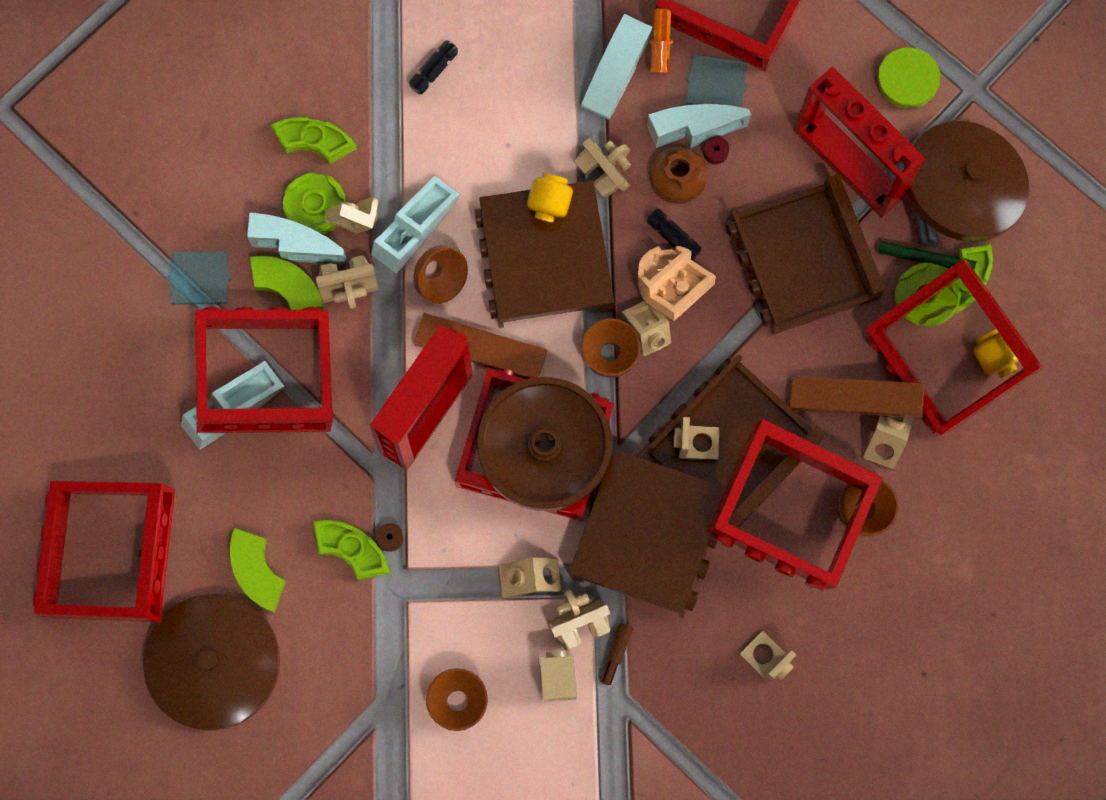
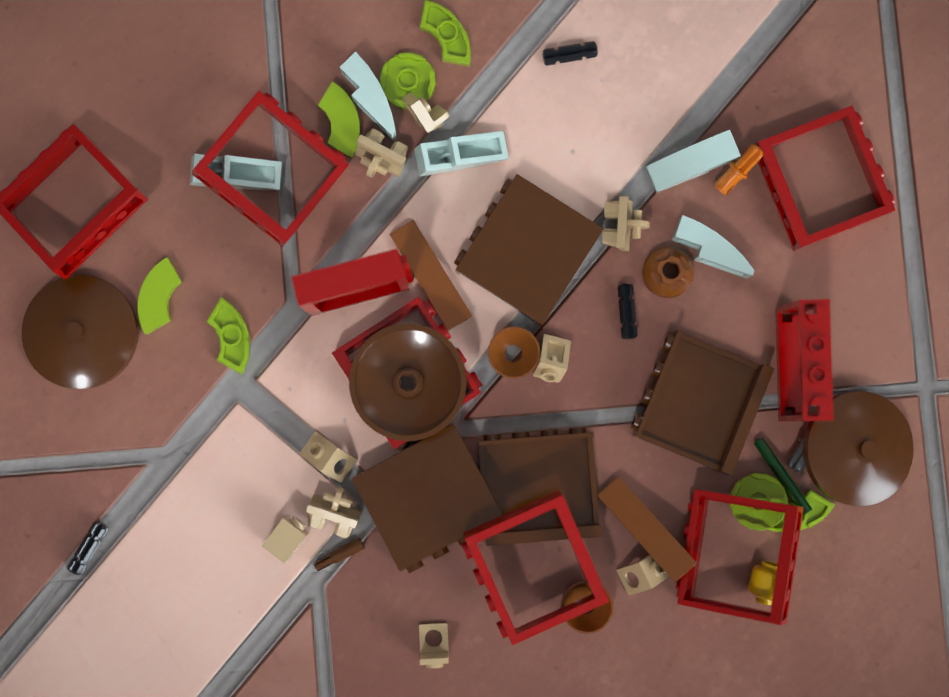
camera: 35 degrees right, 10 degrees up
(199, 278) = (289, 66): clear light blue piece -> none
(389, 530) = (255, 350): reddish brown piece -> none
(448, 278) = (445, 210): dark orange piece -> none
(449, 682) = (195, 498): dark orange piece -> none
(549, 197) = (561, 216): yellow head -> none
(672, 280) = (596, 342): light nougat slope -> none
(684, 438) = (506, 456): tan bracket -> none
(716, 81) = (752, 230): clear light blue piece -> none
(716, 143) = (710, 271): dark red piece -> none
(908, 78) = (887, 341): lime tile -> none

